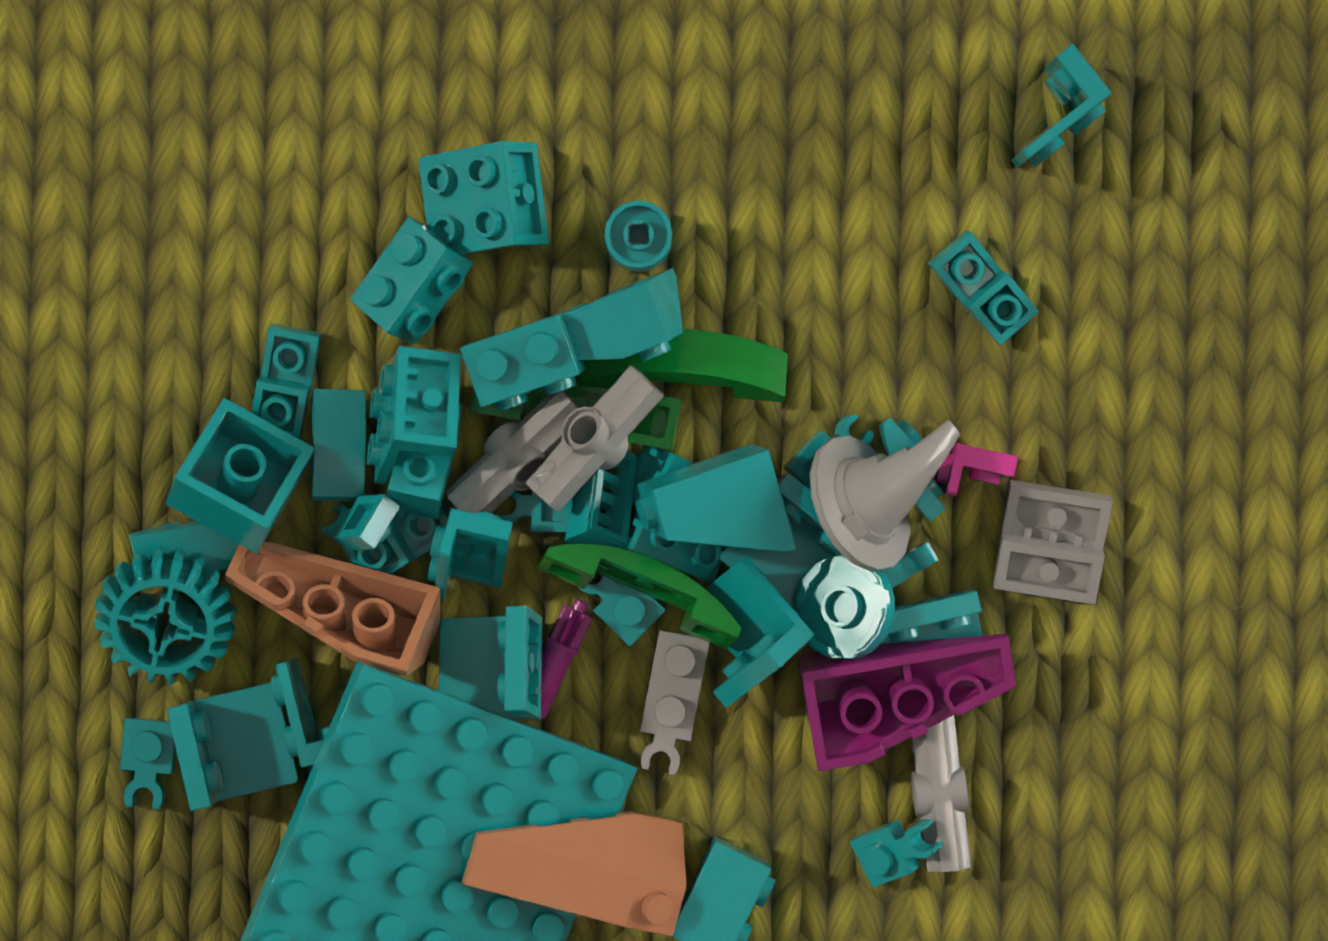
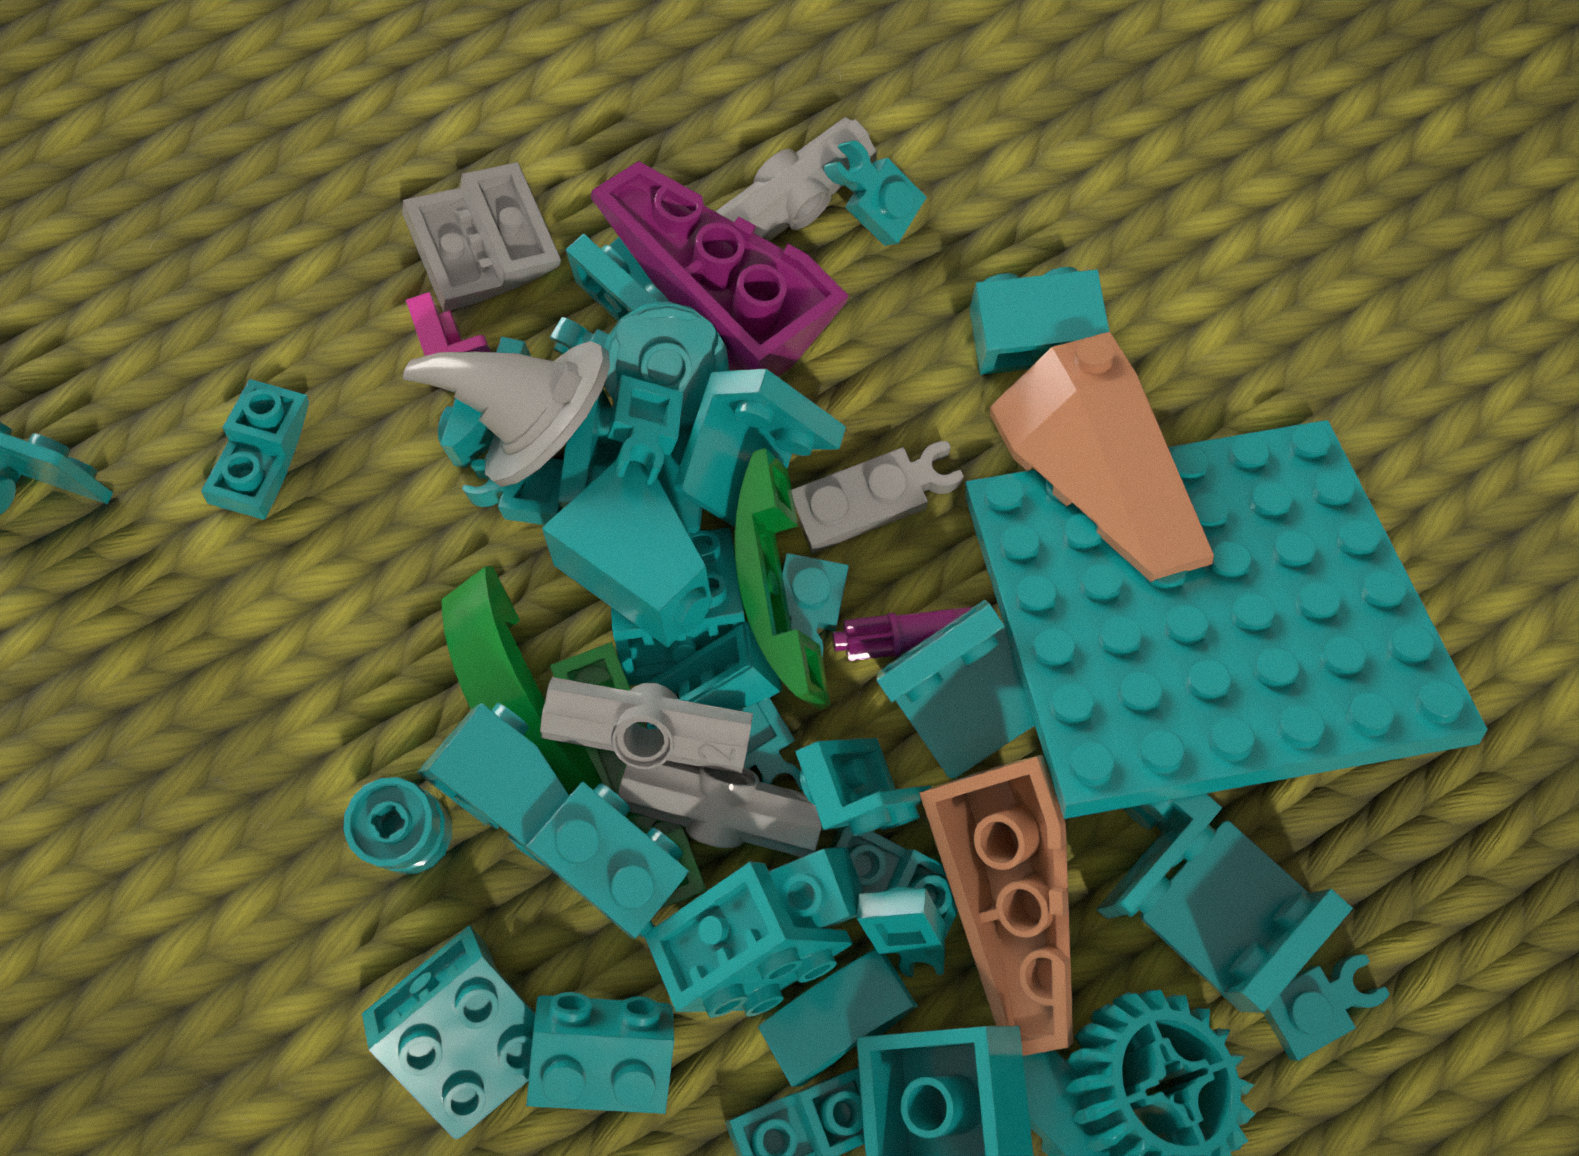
camera: 120 degrees left, 15 degrees down
(804, 566) = (646, 422): none -> teal plate

